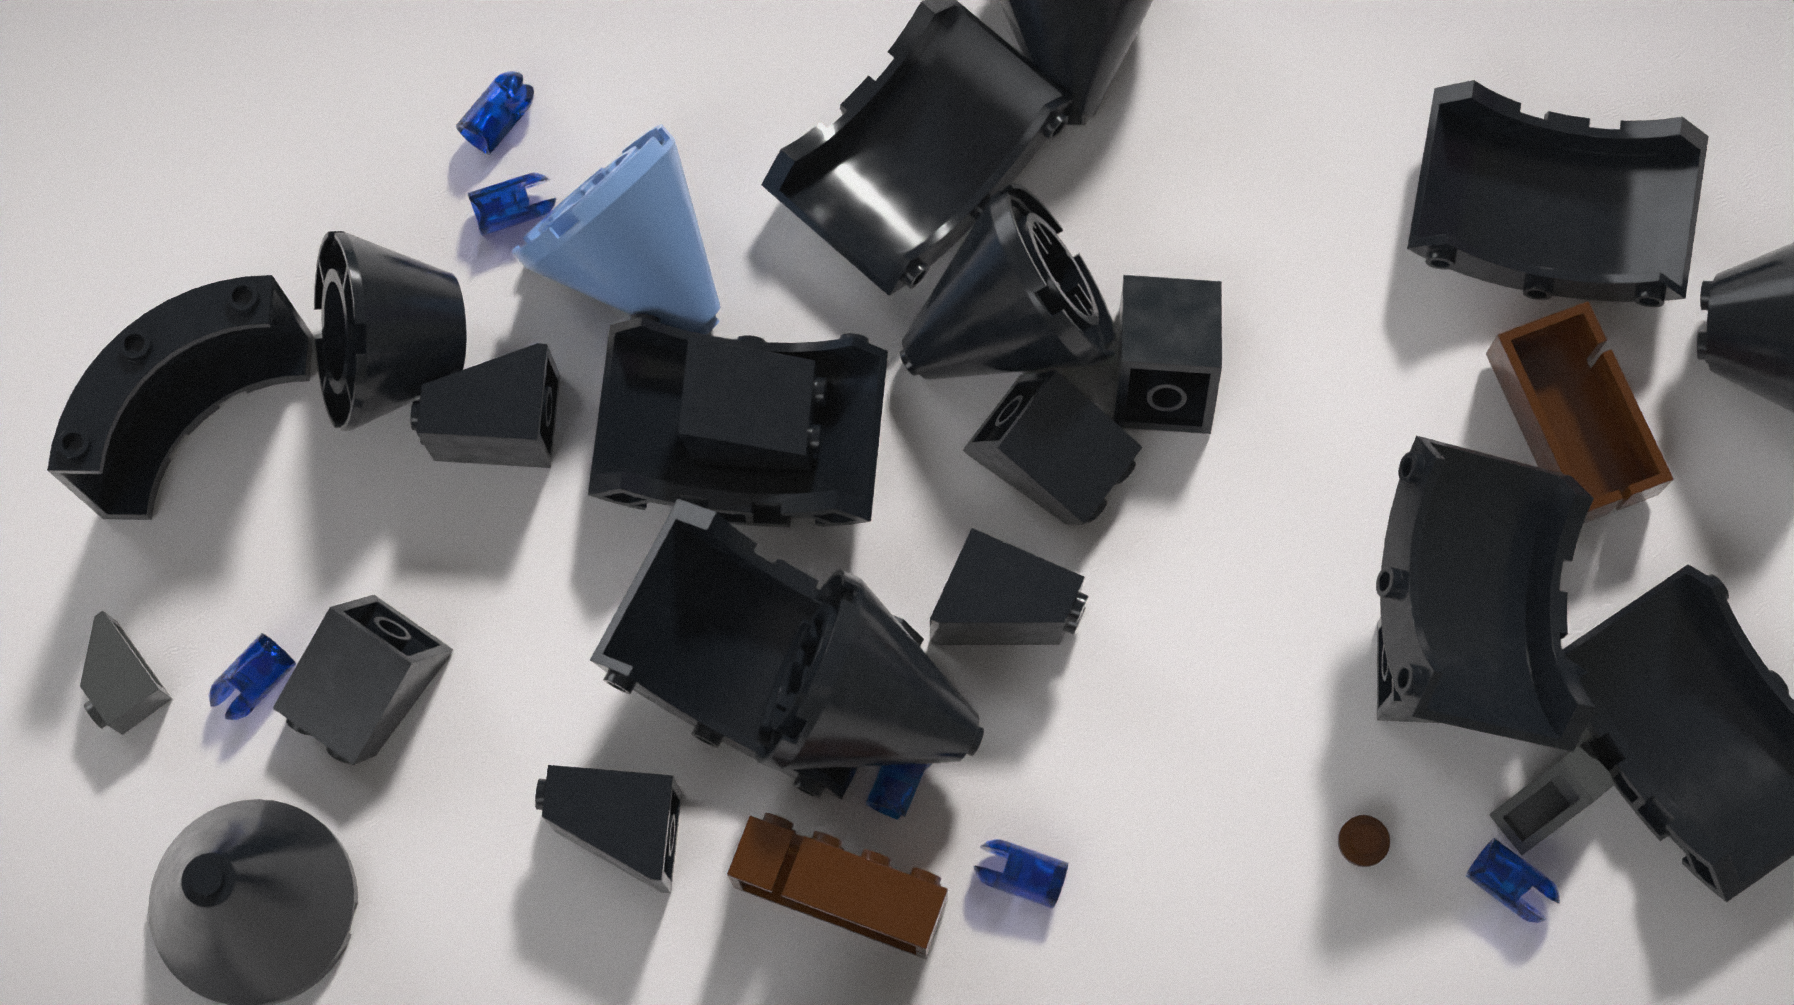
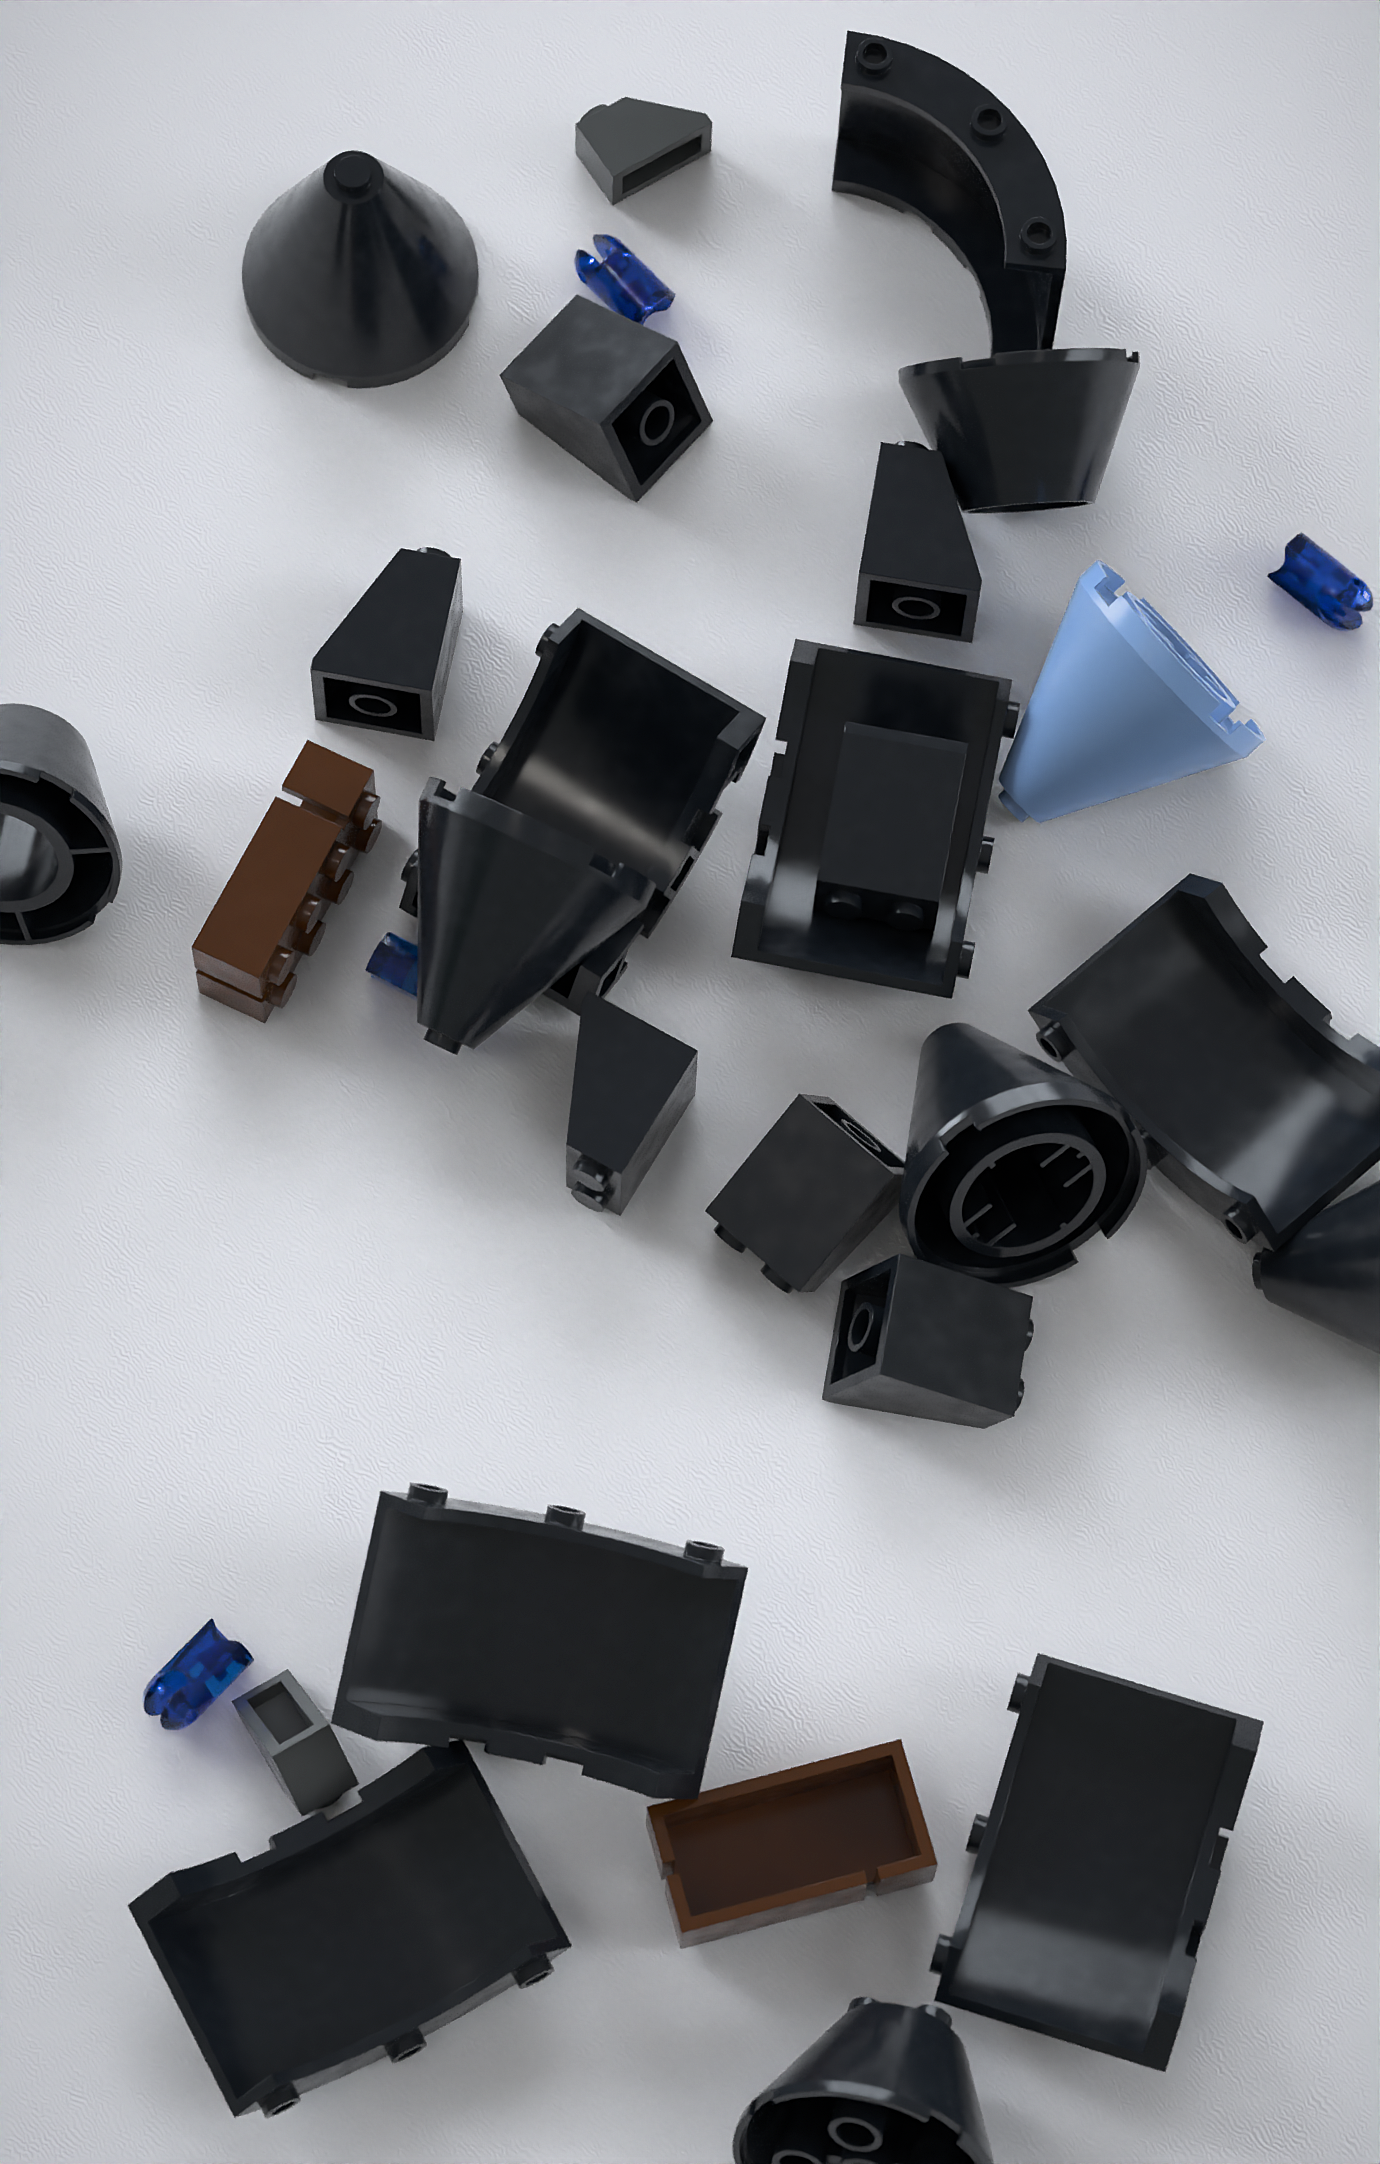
camera: 90 degrees right, 5 degrees down
(508, 203) = (1196, 590): clear blue piece -> none
(1025, 873) = (285, 1103): clear blue piece -> none
(1364, 841) = (272, 1507): reddish brown plate -> none

